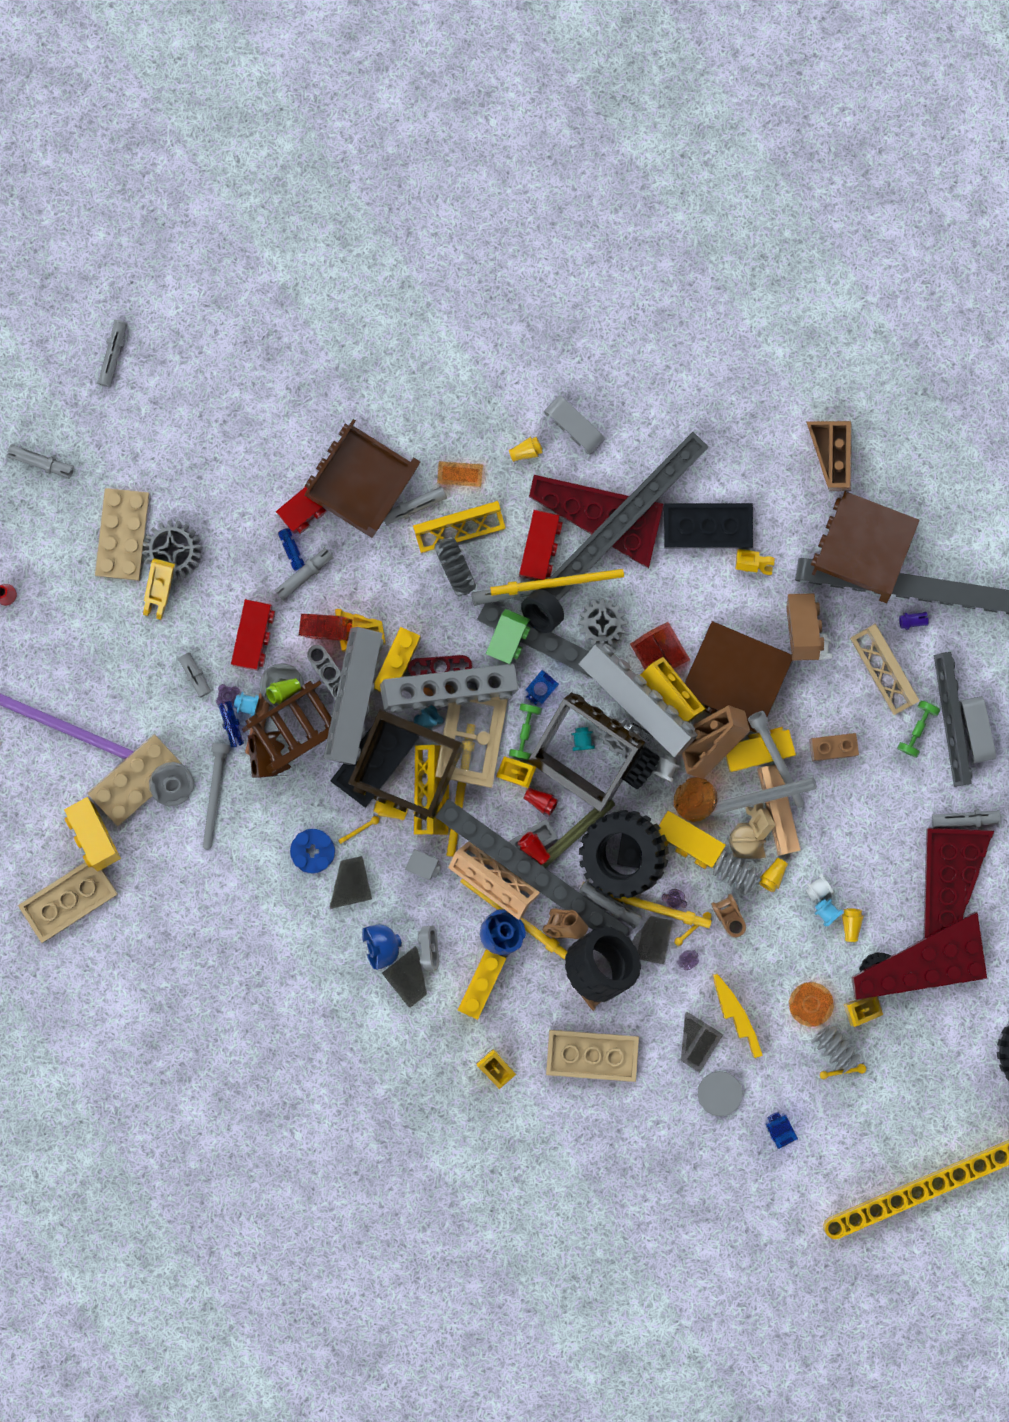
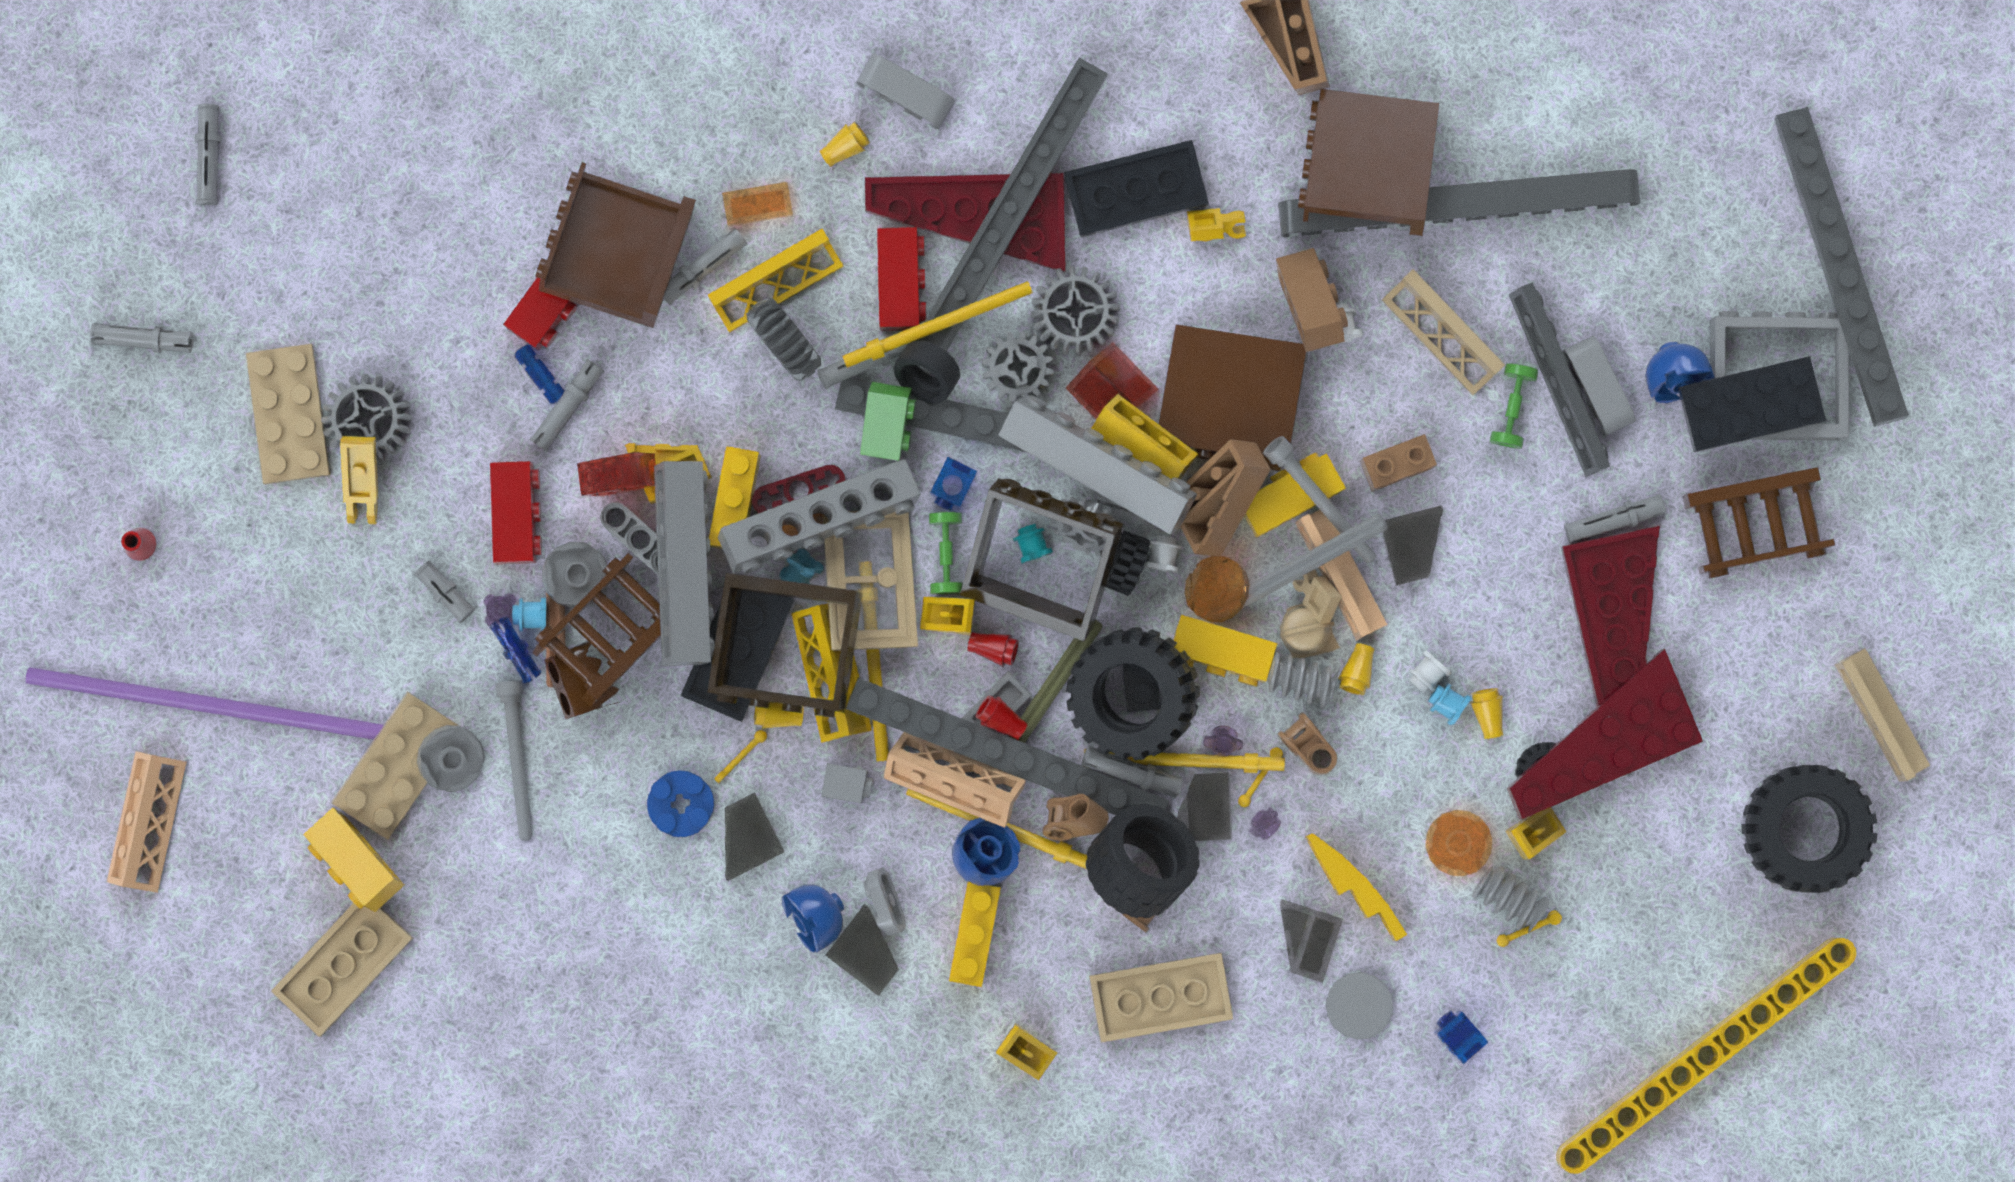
camera: 15 degrees left, 0 degrees up
(282, 690) = (578, 581): lime cone -> none
(639, 594) = (1059, 312): none -> light grey gear
(829, 801) = (1411, 544): none -> clear smoke wing
(913, 620) = (1466, 251): dark purple pin -> none

